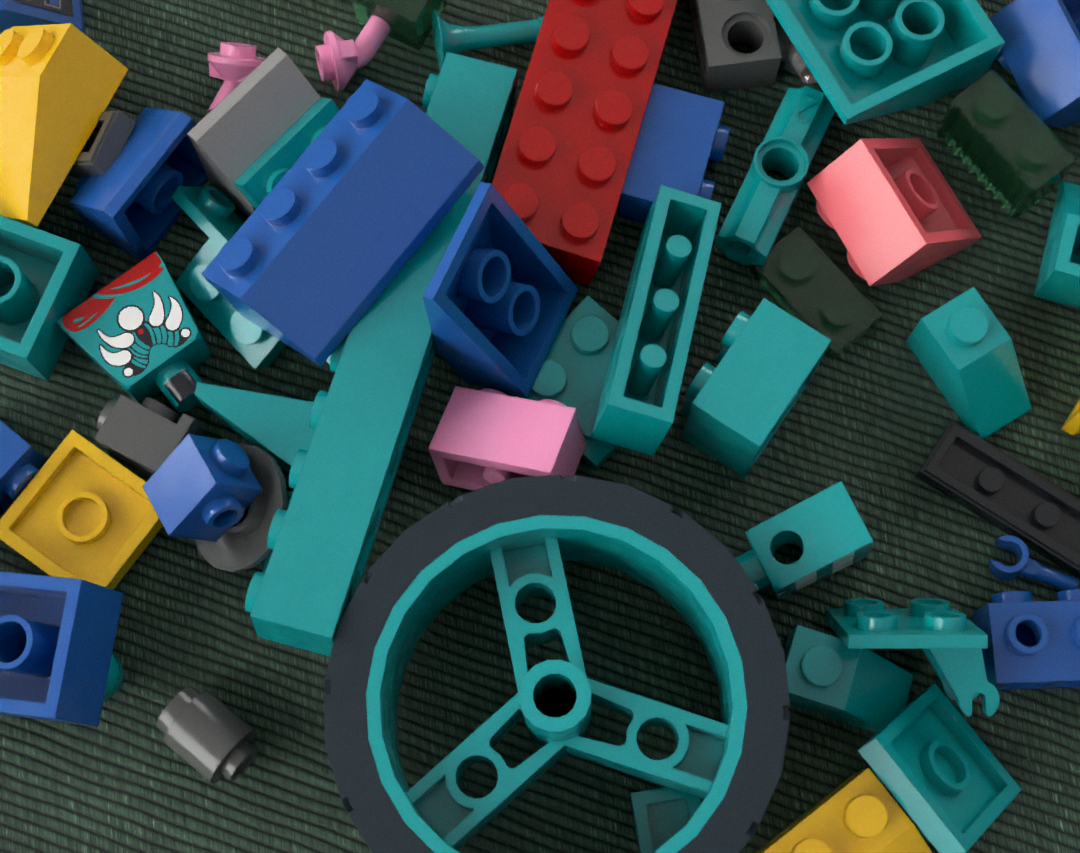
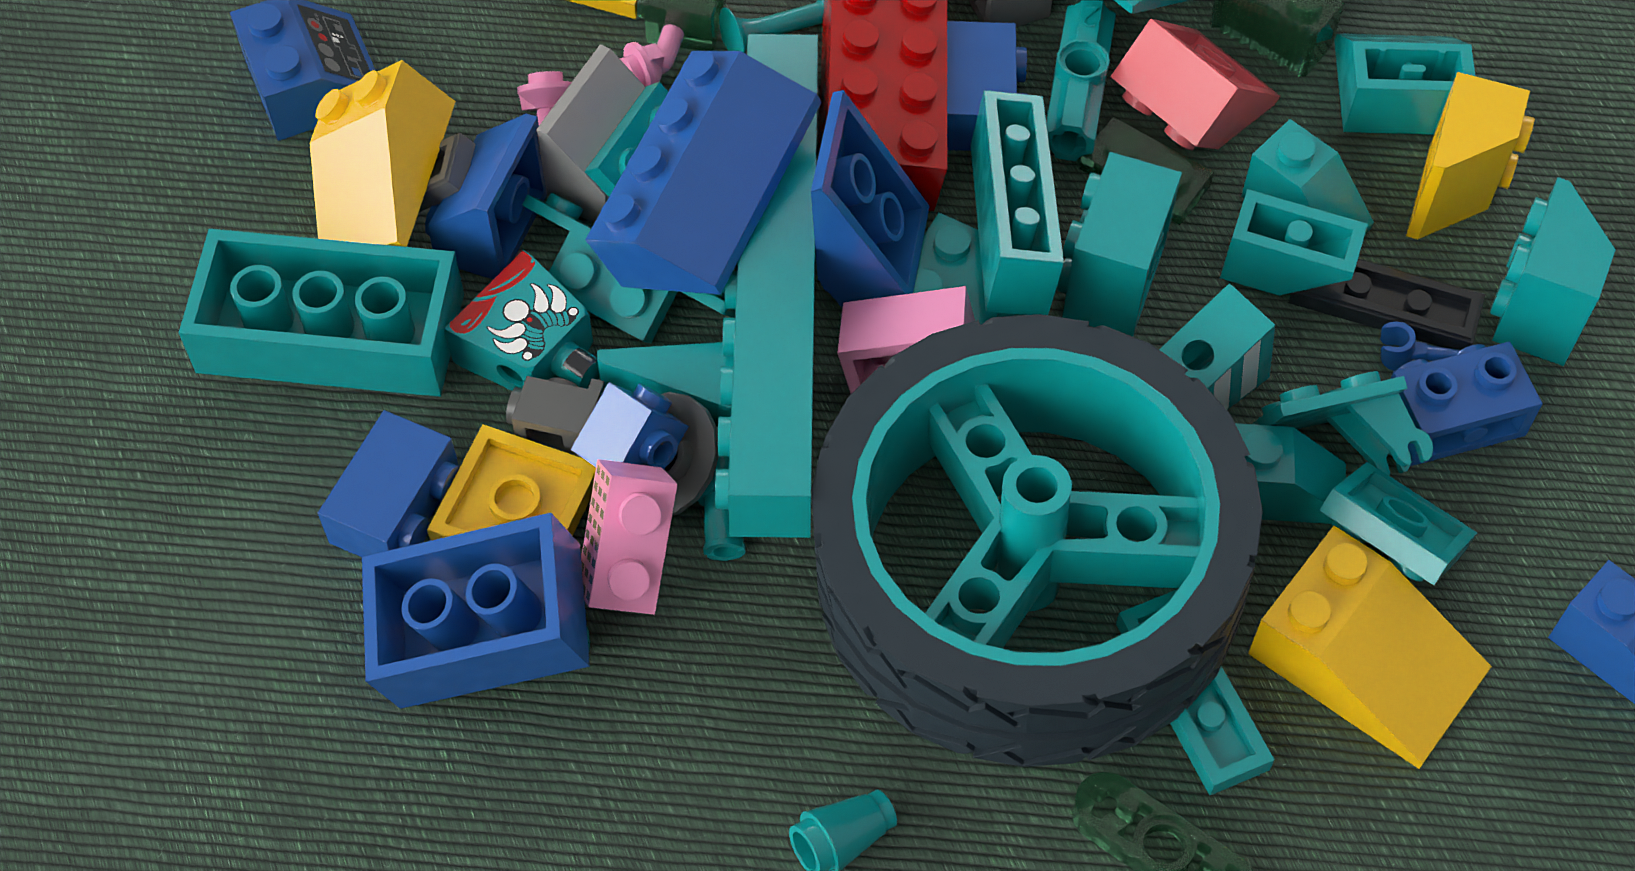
camera: 15 degrees left, 15 degrees down
(165, 601) = (626, 536): none -> bright pink brick
(208, 735) = (695, 660): dark grey brick -> none
(932, 431) = (1290, 246): none -> teal slope

